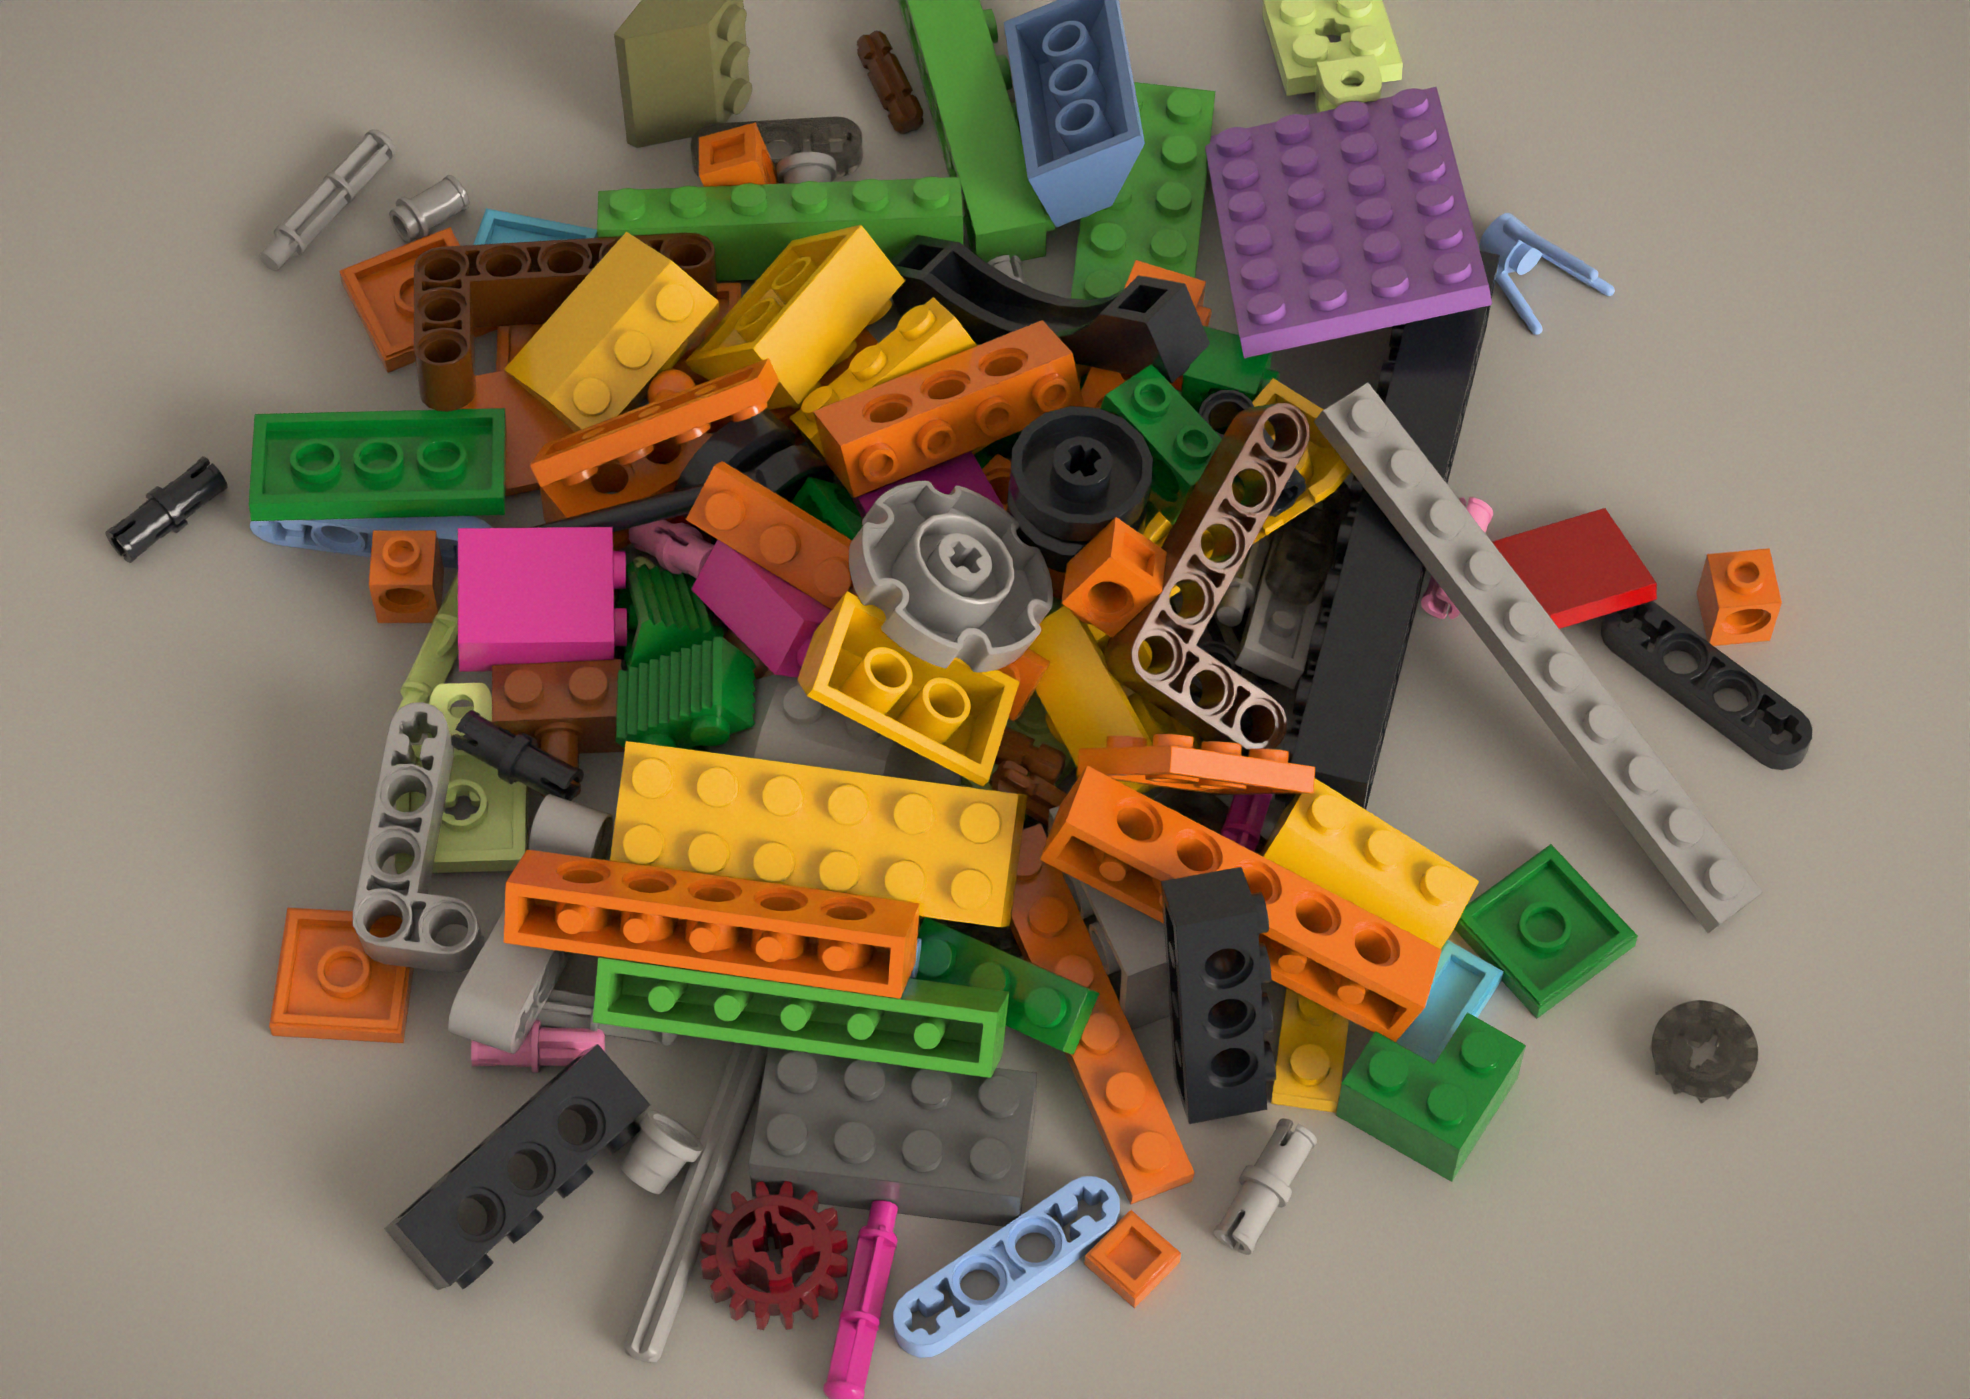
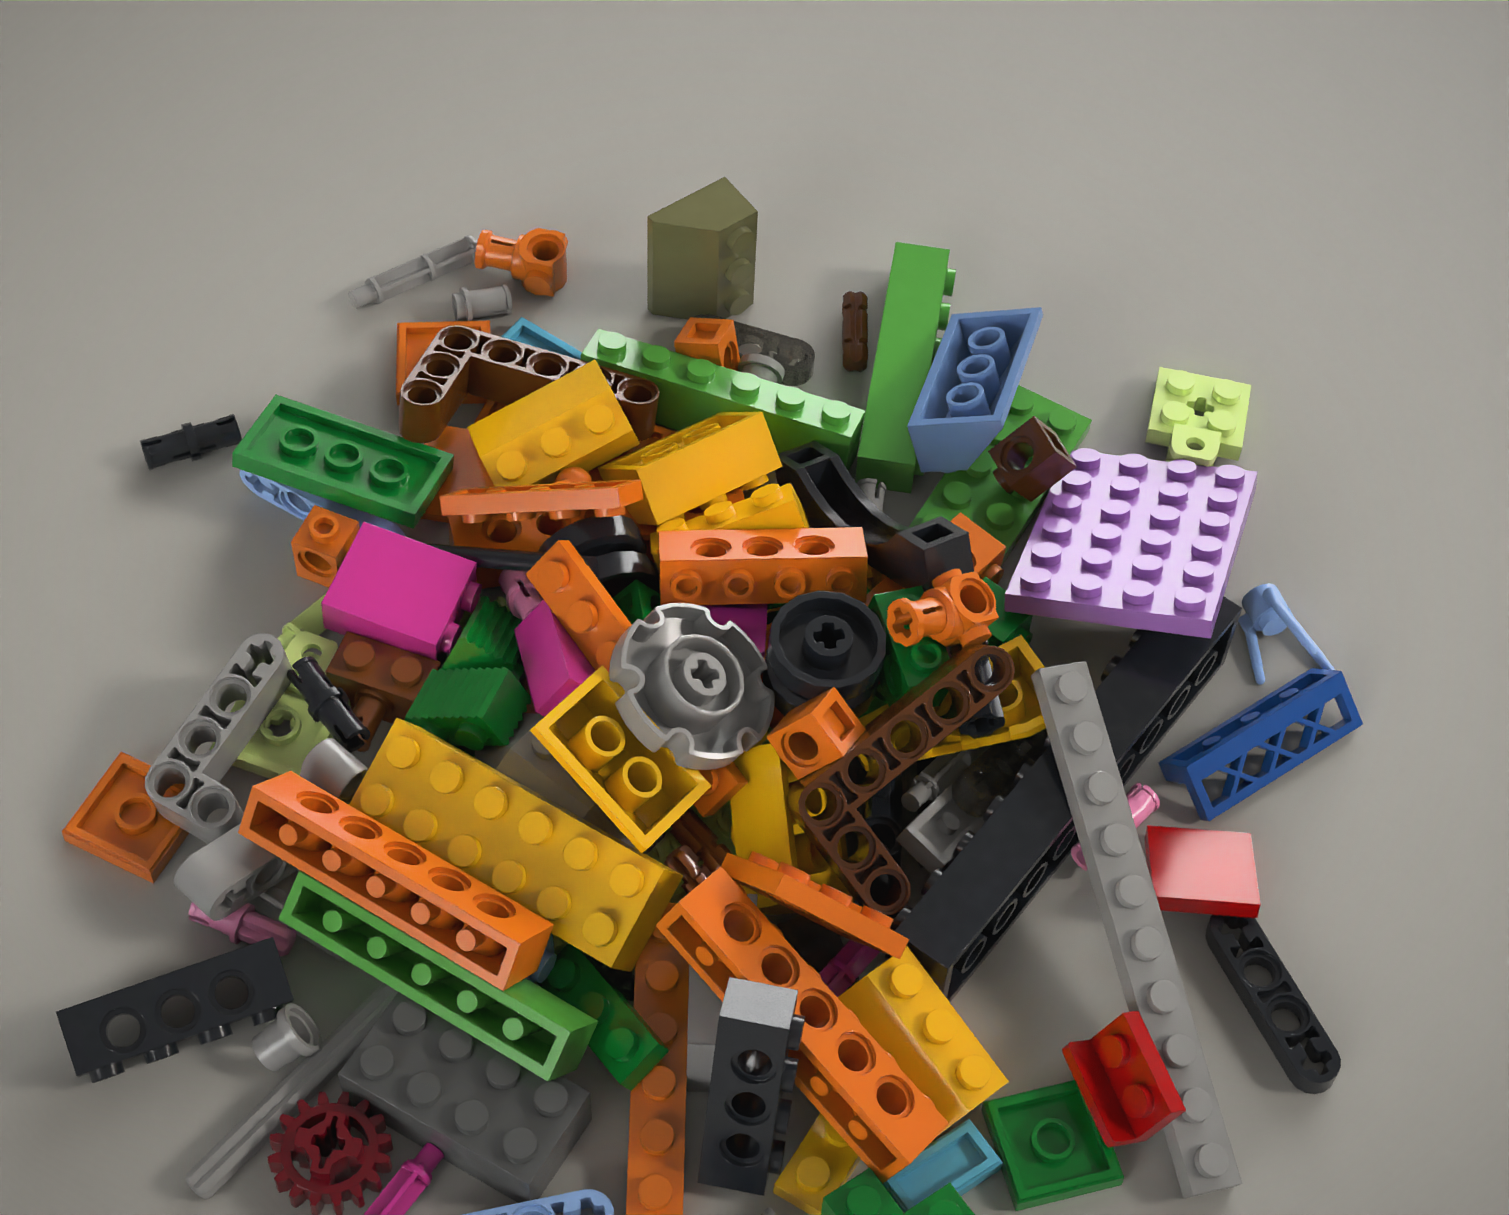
camera: 20 degrees right, 5 degrees down
(467, 132) = (534, 258): none -> orange connector
(1206, 167) = (1049, 461): none -> reddish brown brick
(1207, 380) = (950, 613): none -> orange connector
(1555, 387) = (1251, 728): none -> blue fence
(1598, 831) = (1124, 1081): none -> red bracket
(1739, 597) = (1325, 941): orange brick -> none

